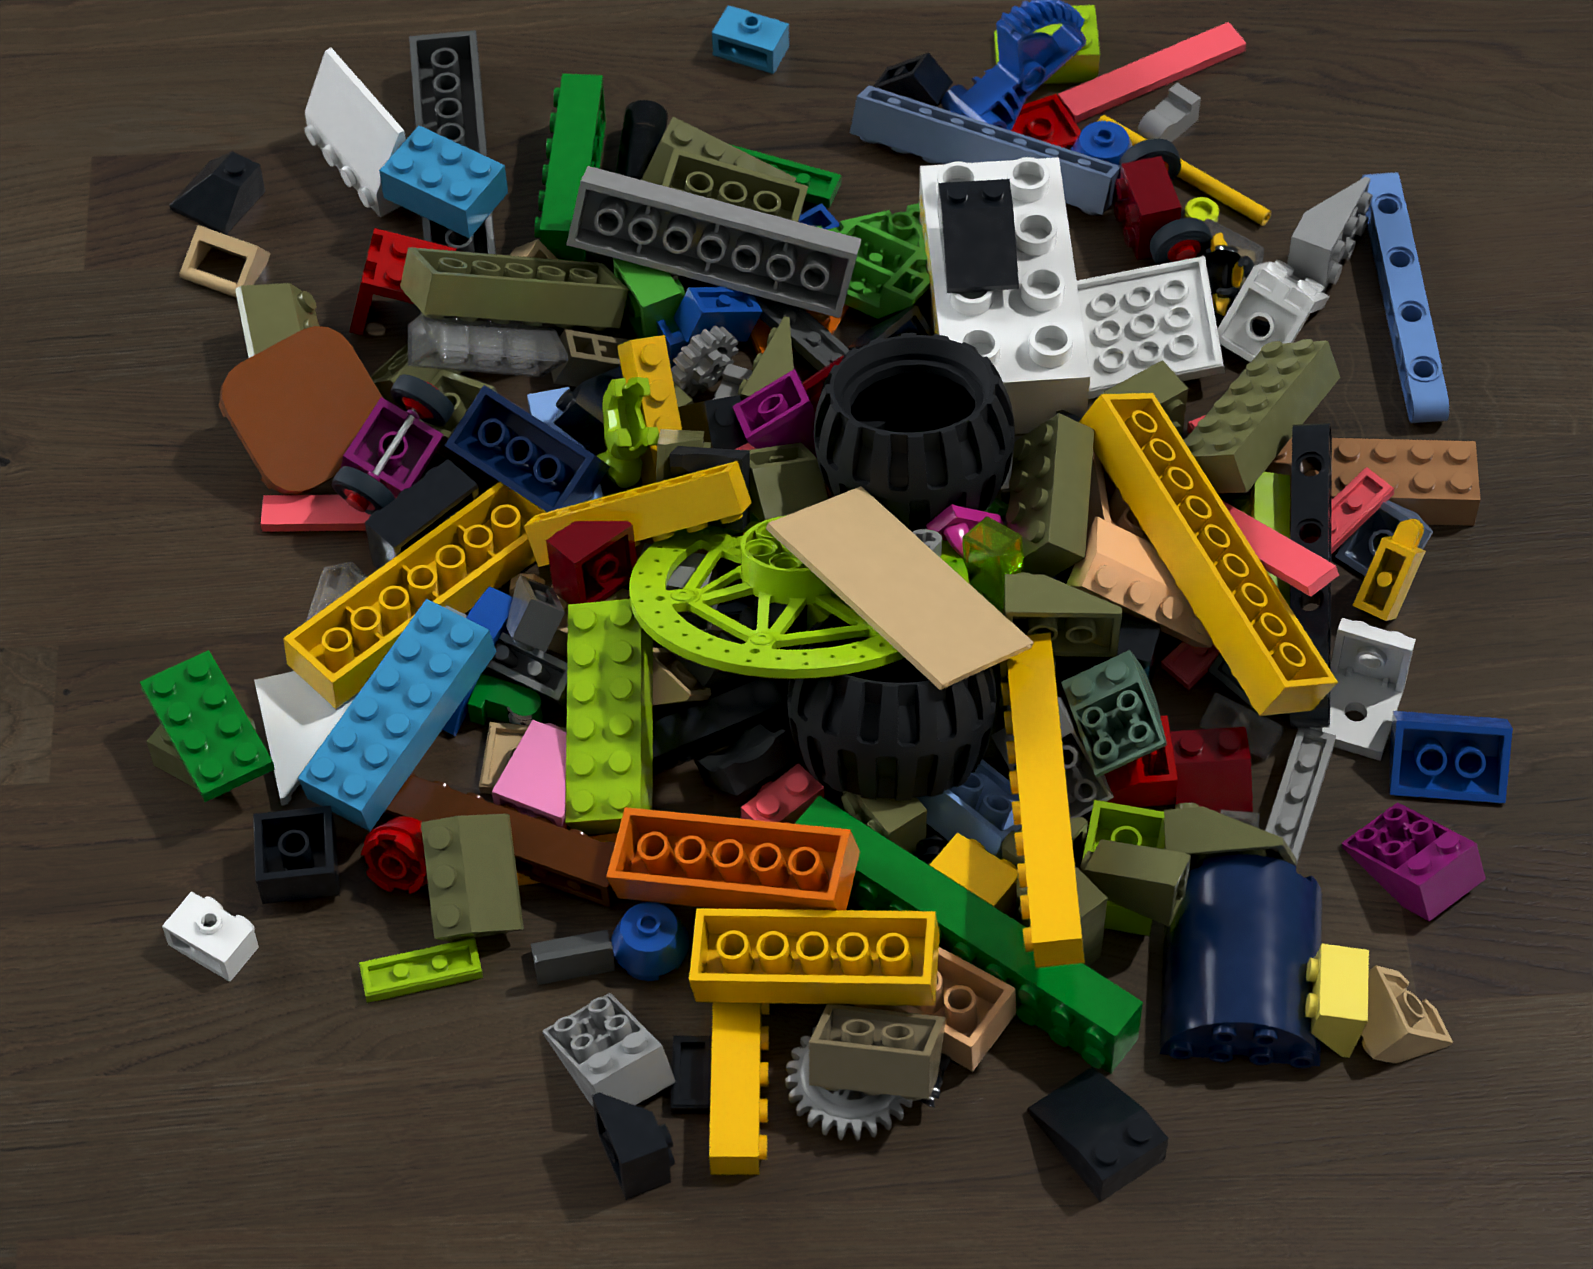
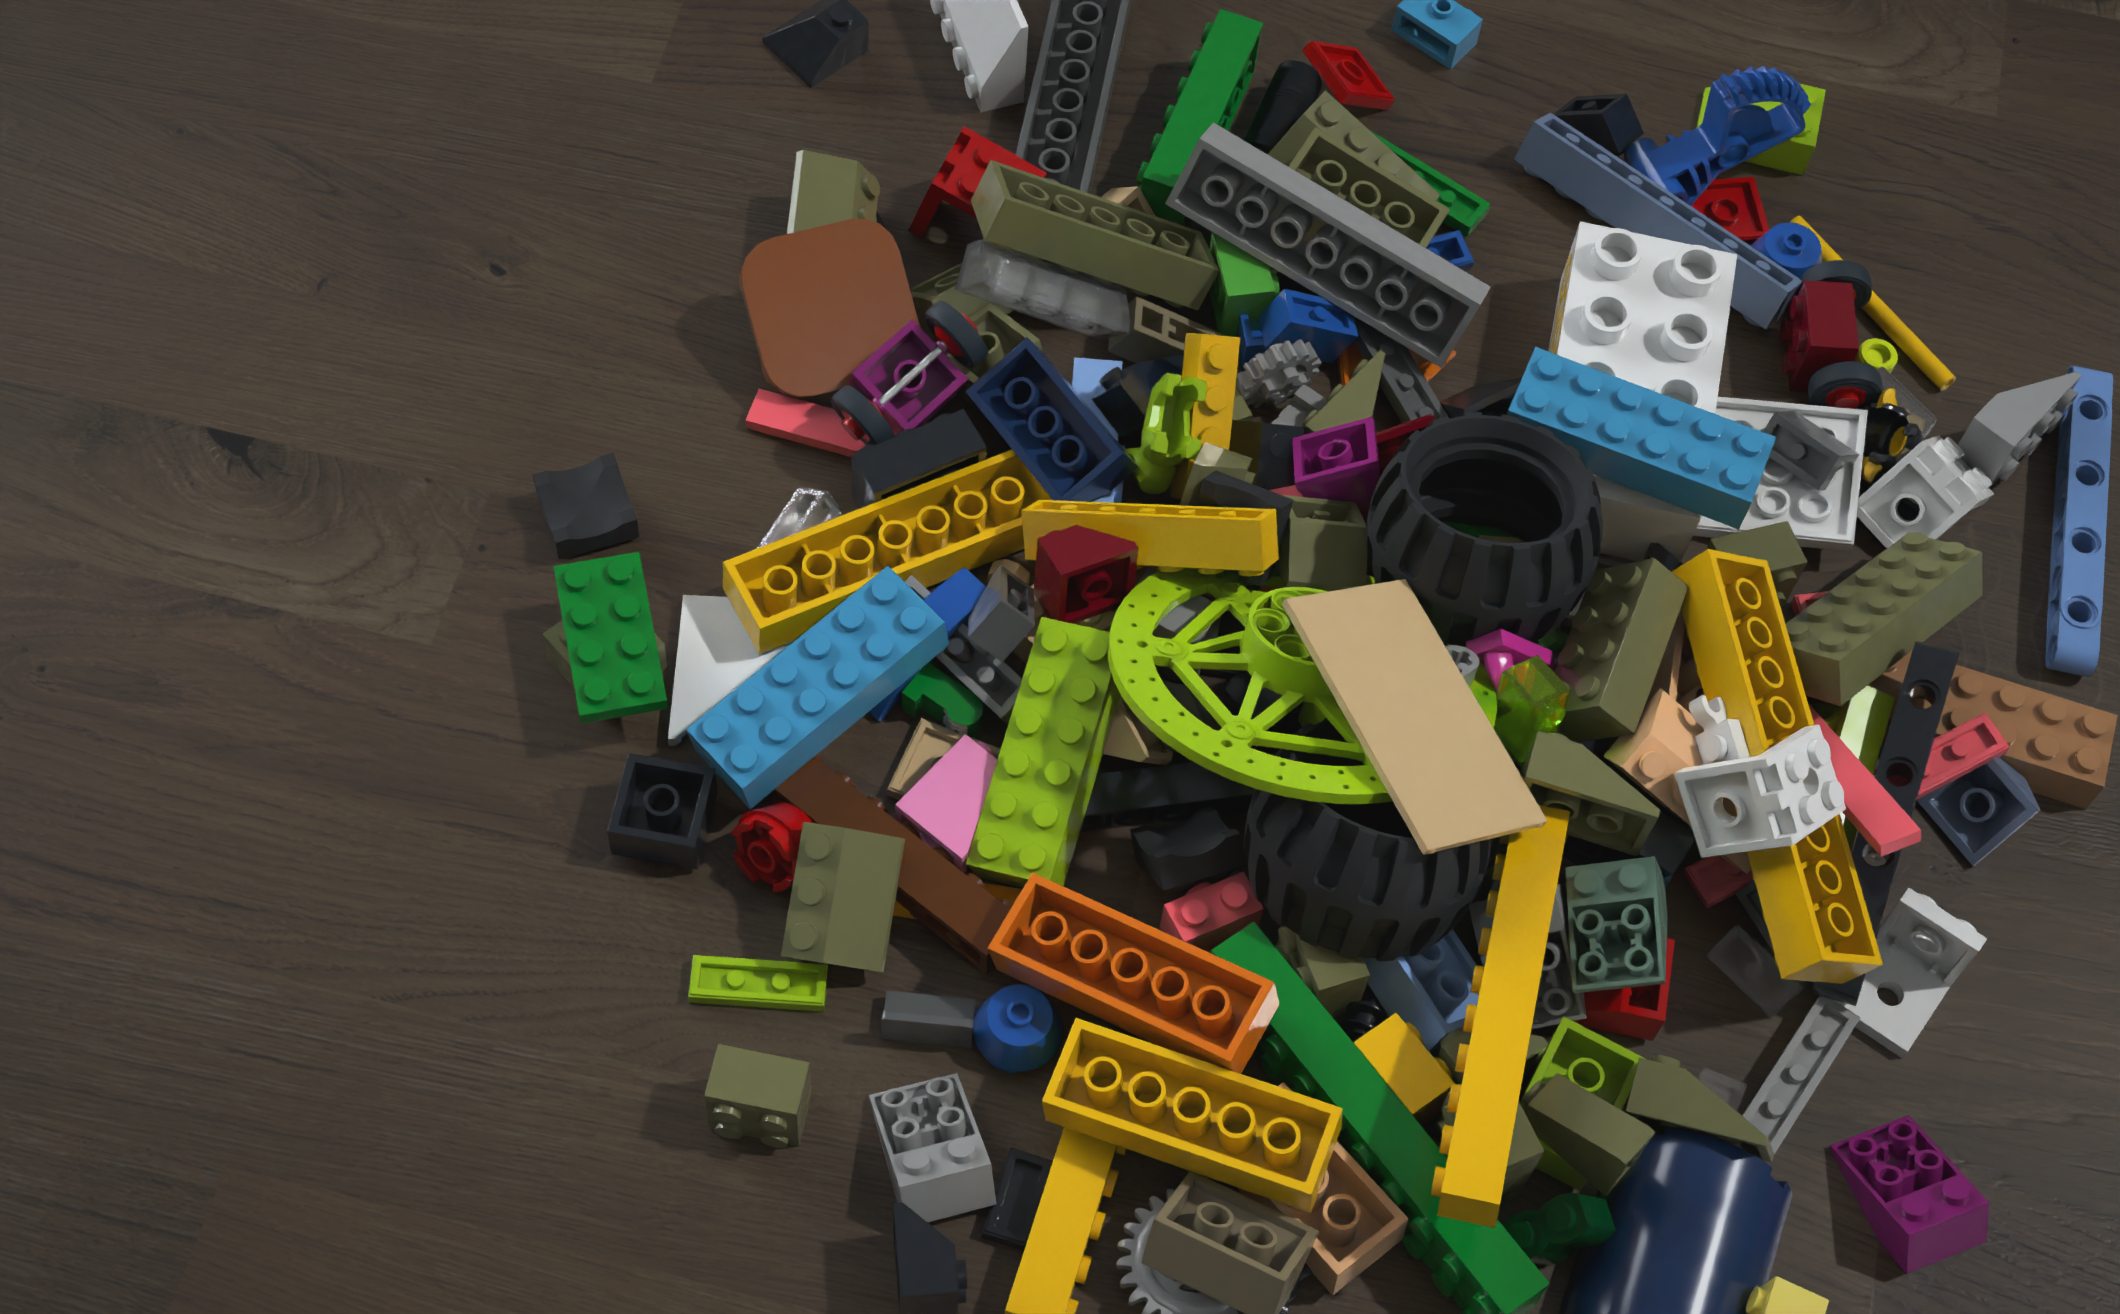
camera: 10 degrees right, 5 degrees up
(147, 631) = (586, 507): none -> black brick
(203, 241) = (778, 93): tan tile -> none
(211, 935) = (543, 875): white brick -> none
(443, 181) = (1056, 94): dark azure brick -> none
(451, 1052) = (758, 1096): none -> olive brick
(688, 100) = (1348, 75): none -> red tile
(889, 261) = (1514, 315): bright green wedge -> none
(978, 235) = (1623, 316): black slope -> none
(1025, 321) = (1645, 437): none -> dark azure brick
(1142, 960) = (1561, 1227): none -> dark green brick
(1152, 72) = (1867, 181): coral tile -> none
(1158, 543) = (1721, 736): none -> white plate
(1160, 300) = (1806, 449): none -> dark grey panel
(1172, 115) = (1874, 237): light grey leg -> none
(1210, 567) = (1776, 796): none -> white bracket
(1213, 768) = (1708, 1018): dark red slope -> none
(1392, 571) = (1979, 843): yellow brick -> none
(1449, 756) = (1985, 1080): blue slope -> none

